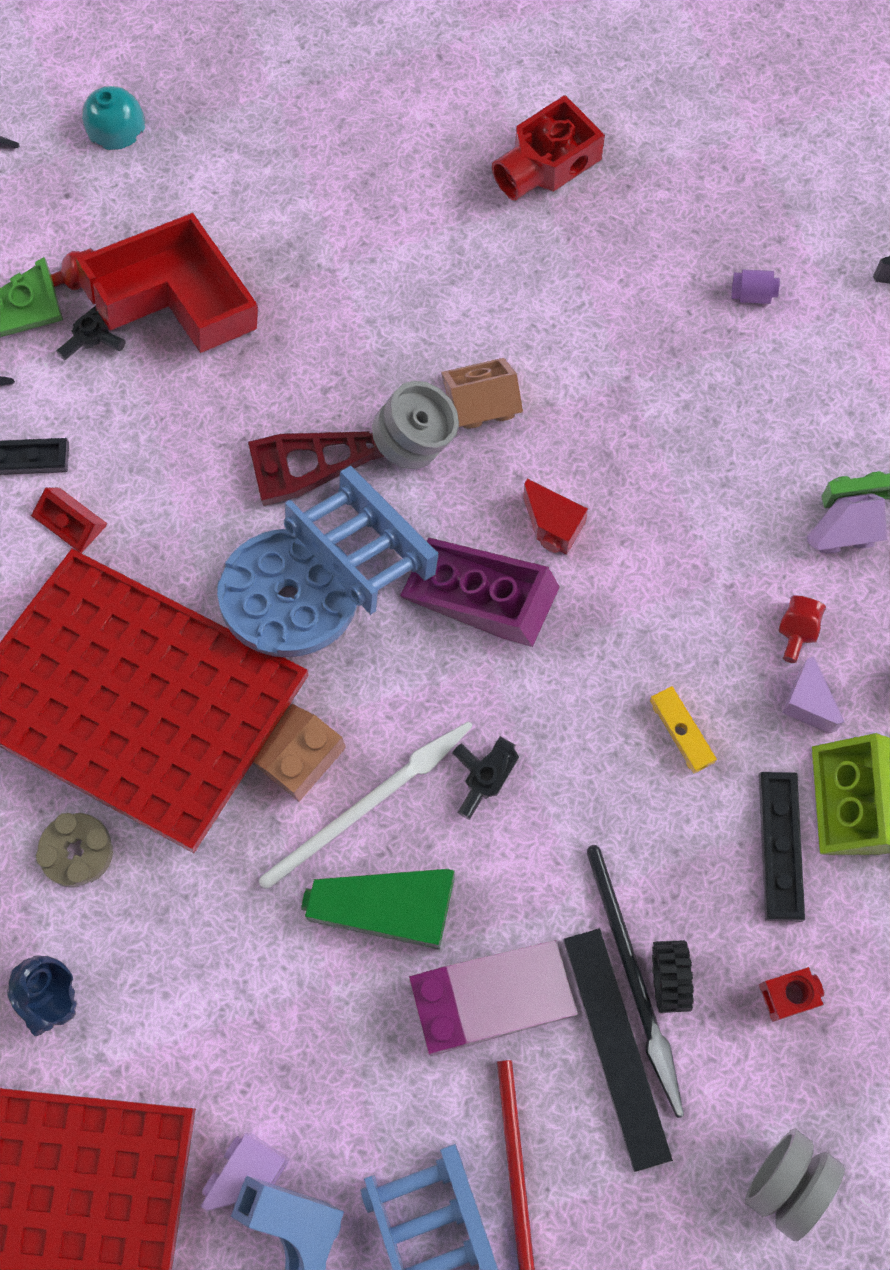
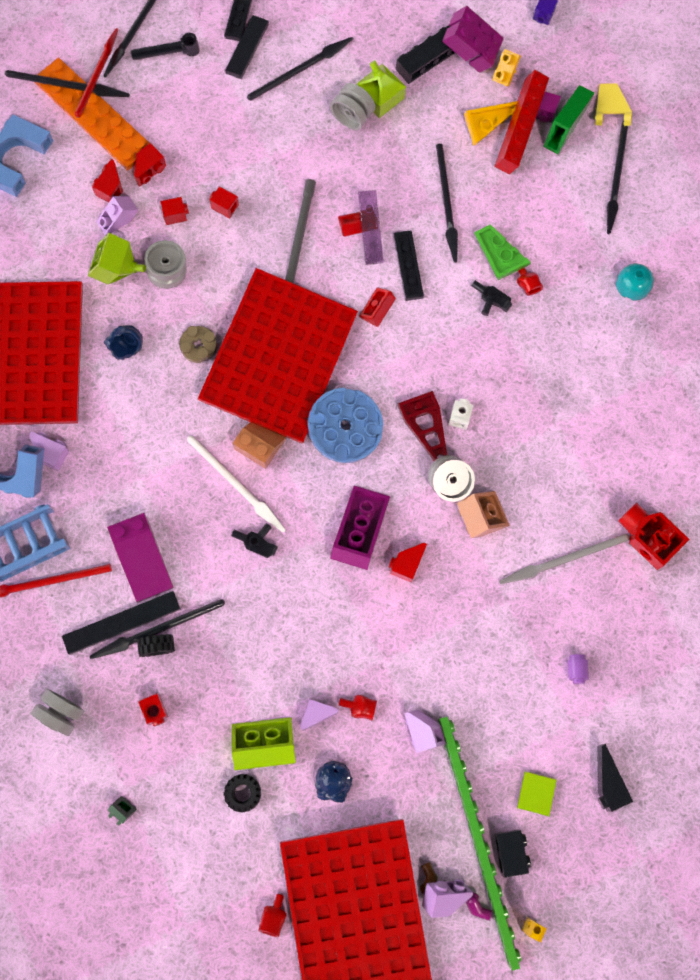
camera: 75 degrees right, 5 degrees up
(171, 268) = (532, 330): red piece -> none
(303, 410) = (458, 419): none -> white brick
(375, 513) = (384, 476): medium blue fence -> none
(387, 905) = (181, 499): green slope -> none
(585, 334) = (531, 571): none -> light grey piece
(692, 744) = (300, 638): yellow piece -> none
(781, 847) = (233, 702): black tile -> none

